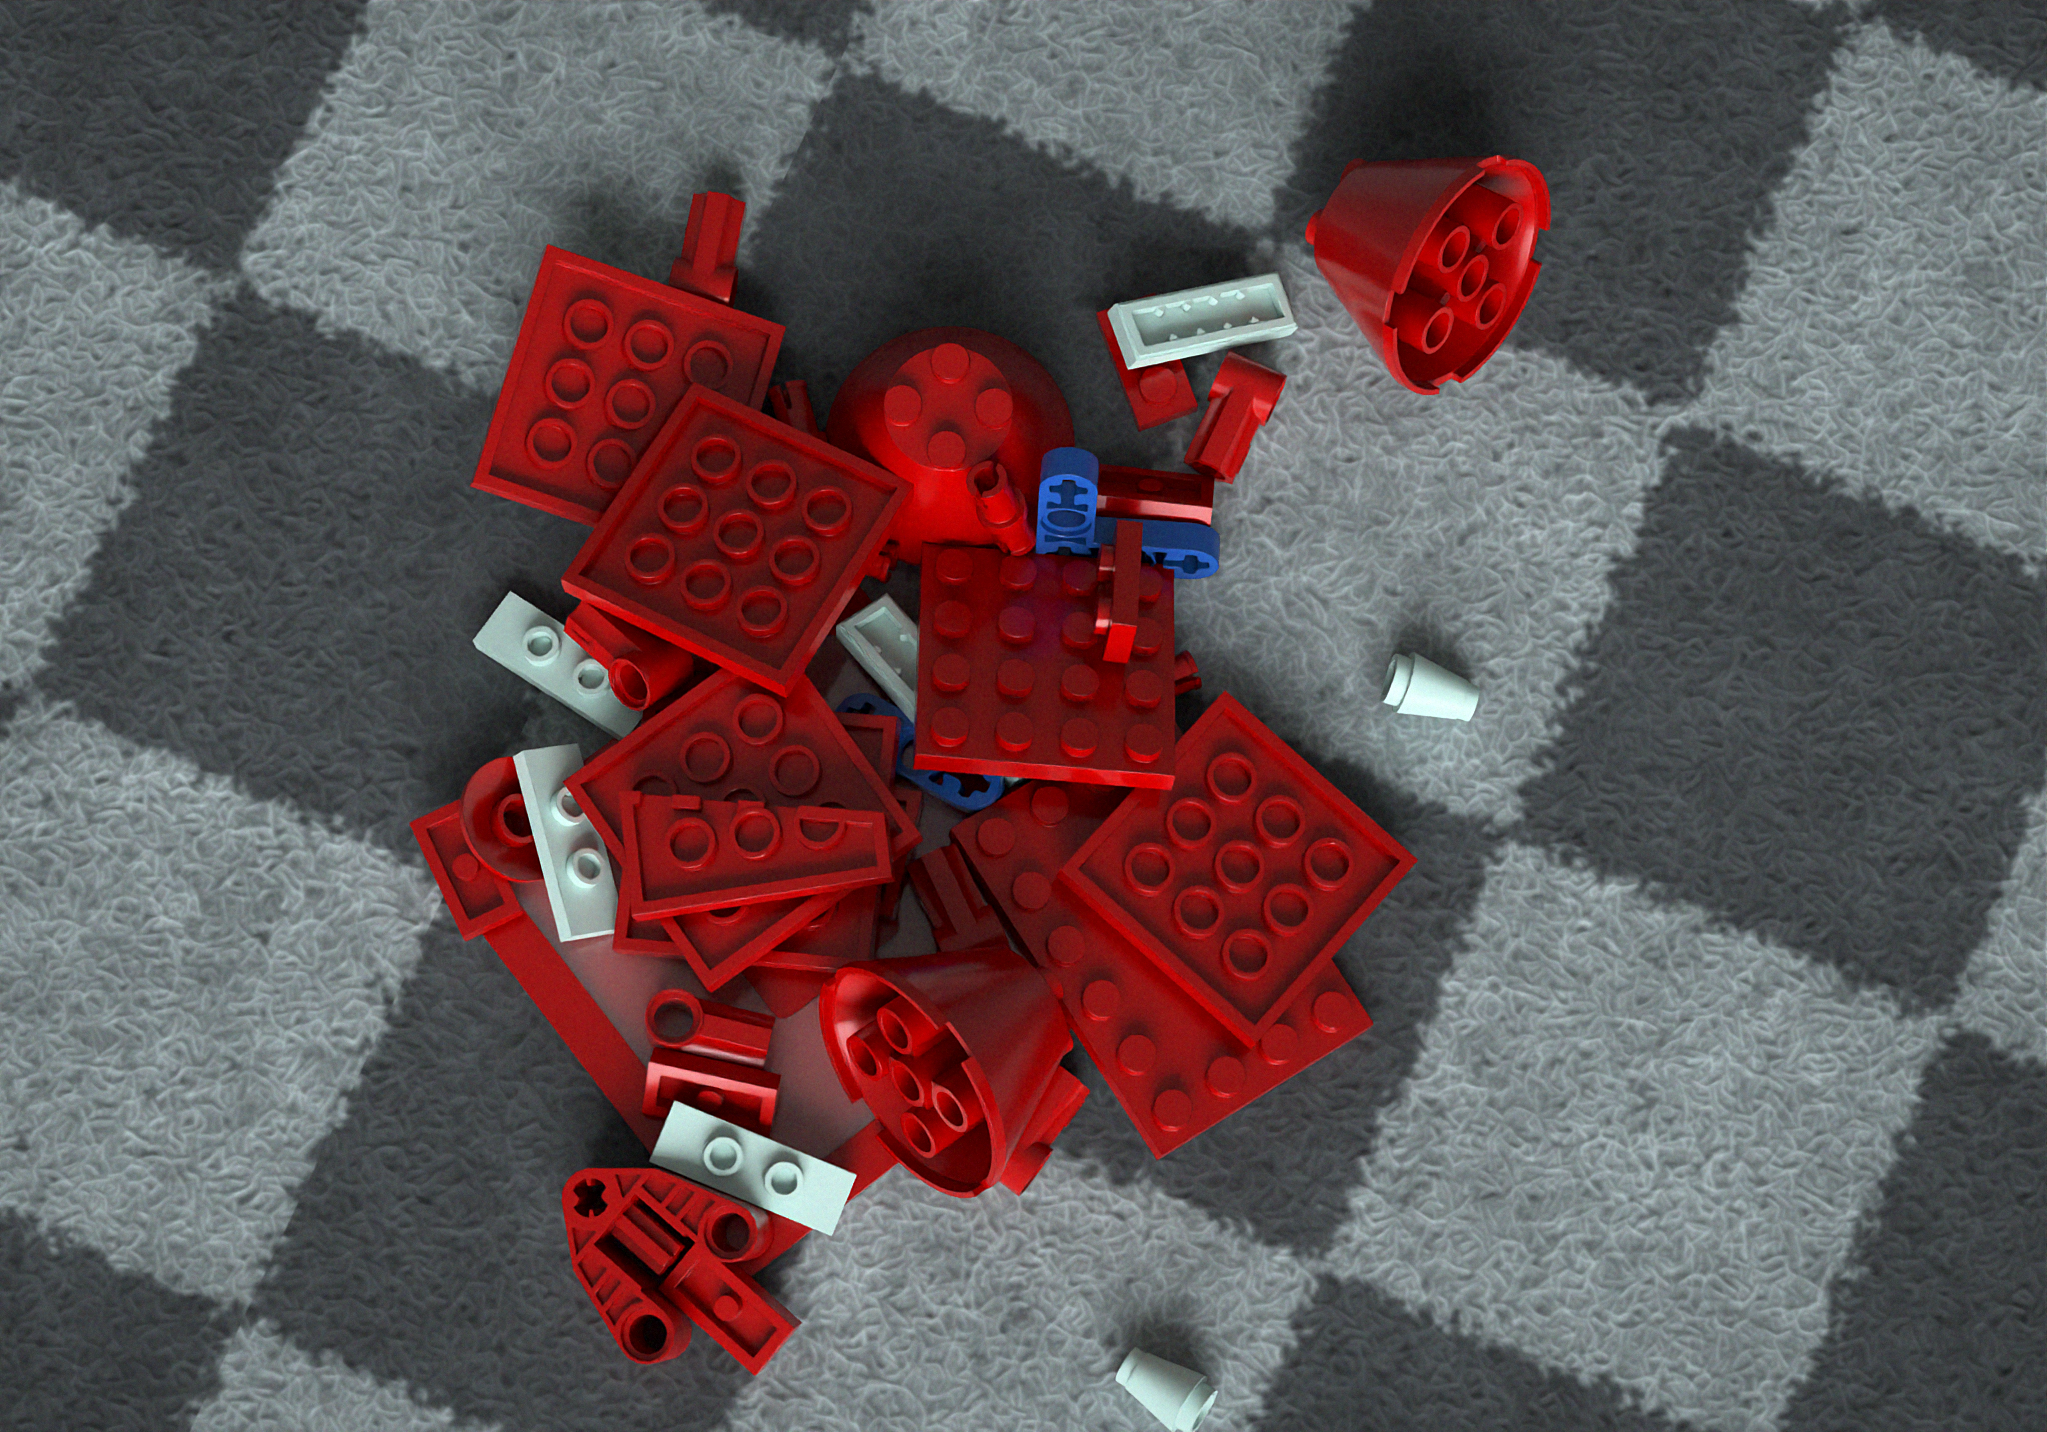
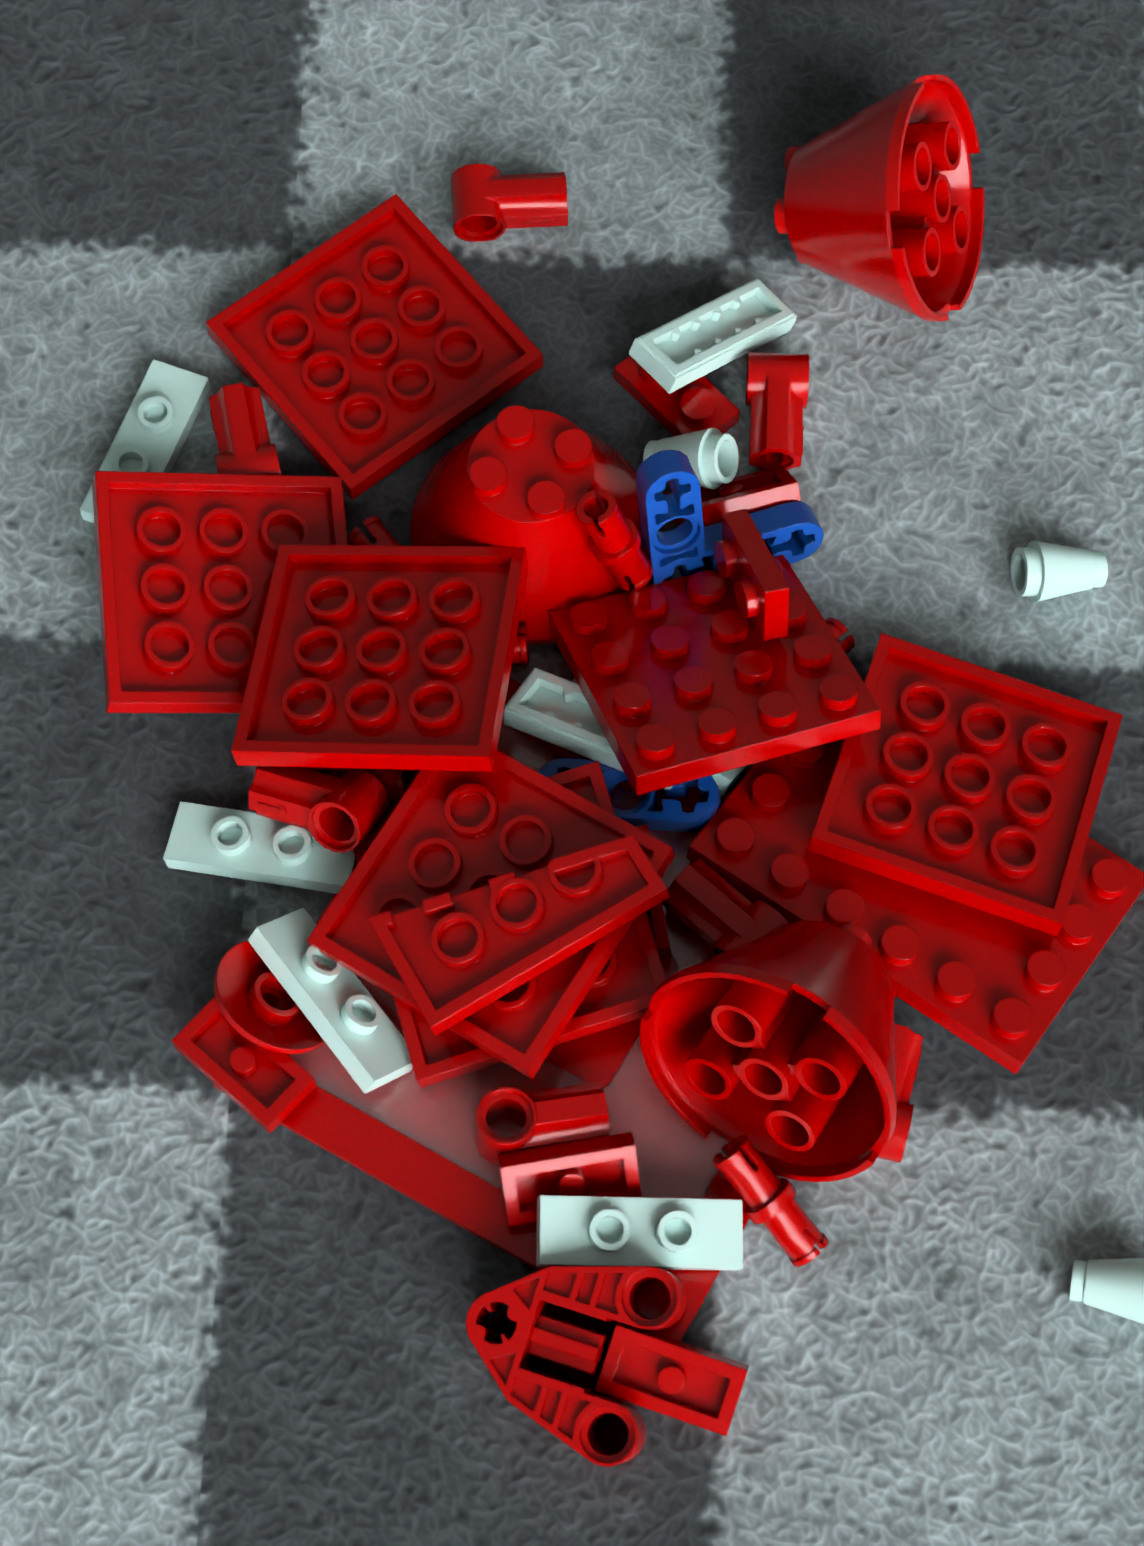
camera: 20 degrees left, 10 degrees down
(629, 204) = (155, 424): none -> light aqua plate
(876, 198) = (374, 345): none -> red plate
(883, 1185) = (770, 1201): none -> red pin
(1051, 90) = (491, 202): none -> red piece
(1129, 440) = (709, 452): none -> light aqua cone

